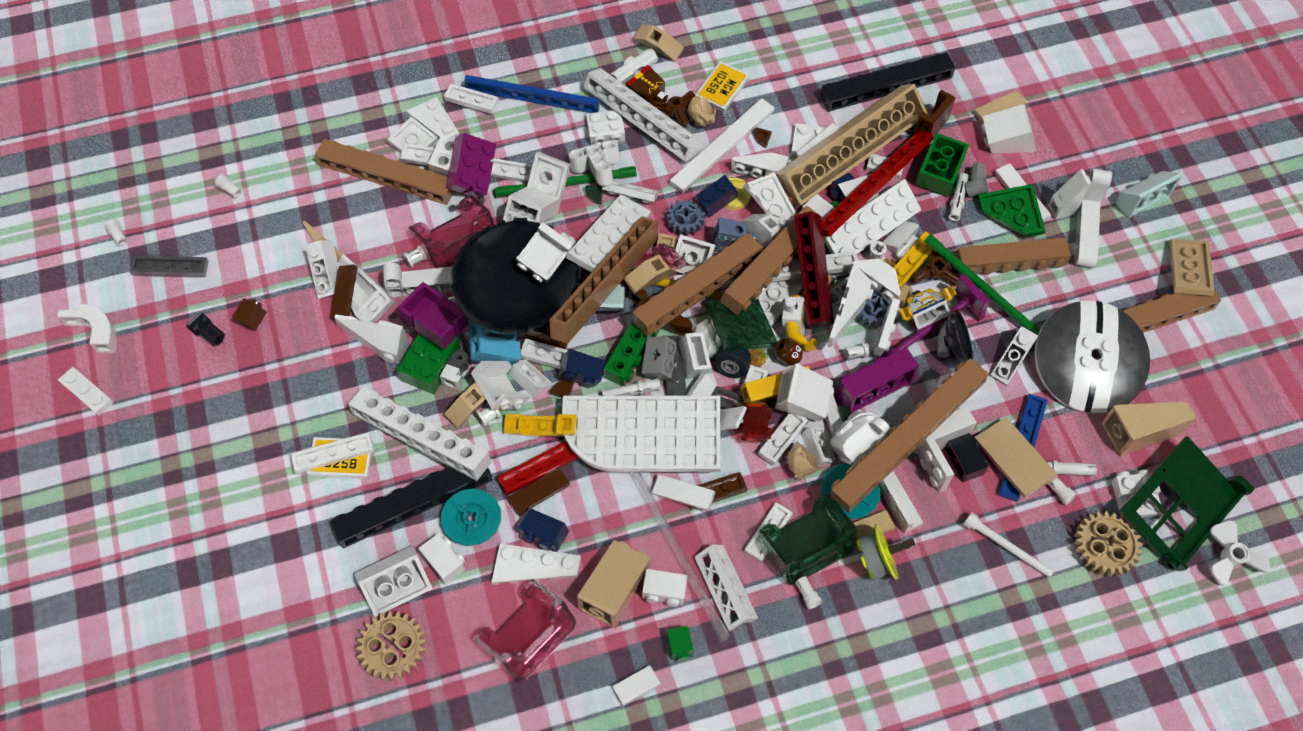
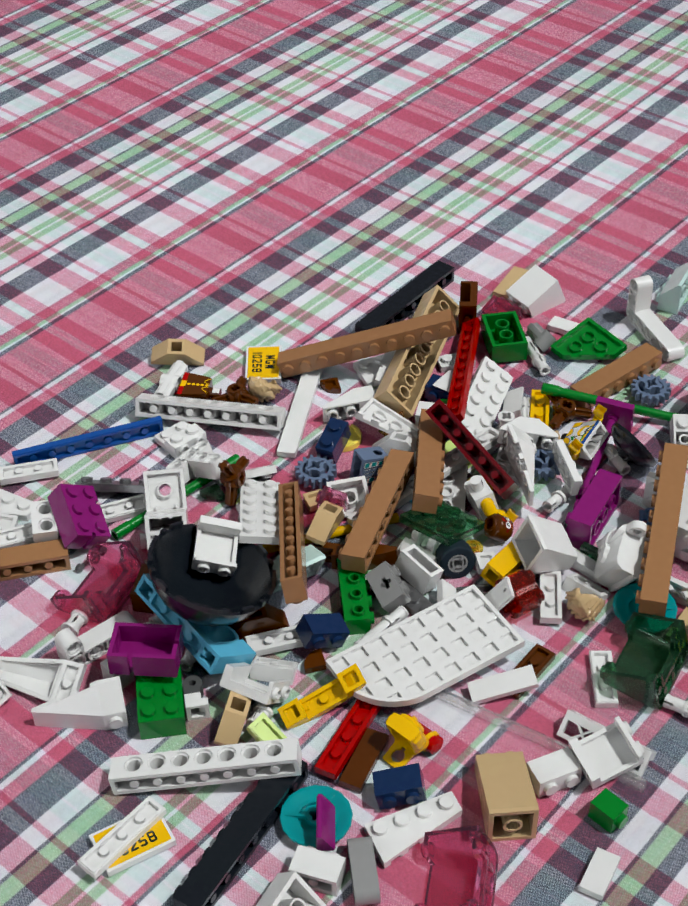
camera: 30 degrees left, 20 degrees down
(344, 290) = (21, 686): reddish brown tile -> none
(468, 528) = (325, 824): none -> magenta slope
(472, 579) = (363, 871): none -> light grey beam
(483, 433) = (264, 729): none -> yellowish green tile
(518, 142) = (106, 484): none -> flat silver plate
(580, 495) = (411, 736): none -> yellow piece
(611, 190) = (233, 477): none -> reddish brown bush
(710, 598) = (607, 753): none -> white panel
(809, 116) = (367, 343): none -> medium nougat brick
(964, 131) = (498, 305): none -> clear pink bracket
(1031, 286) = (650, 389): none -> sand blue gear
(1070, 195) = (625, 311): white slope -> none

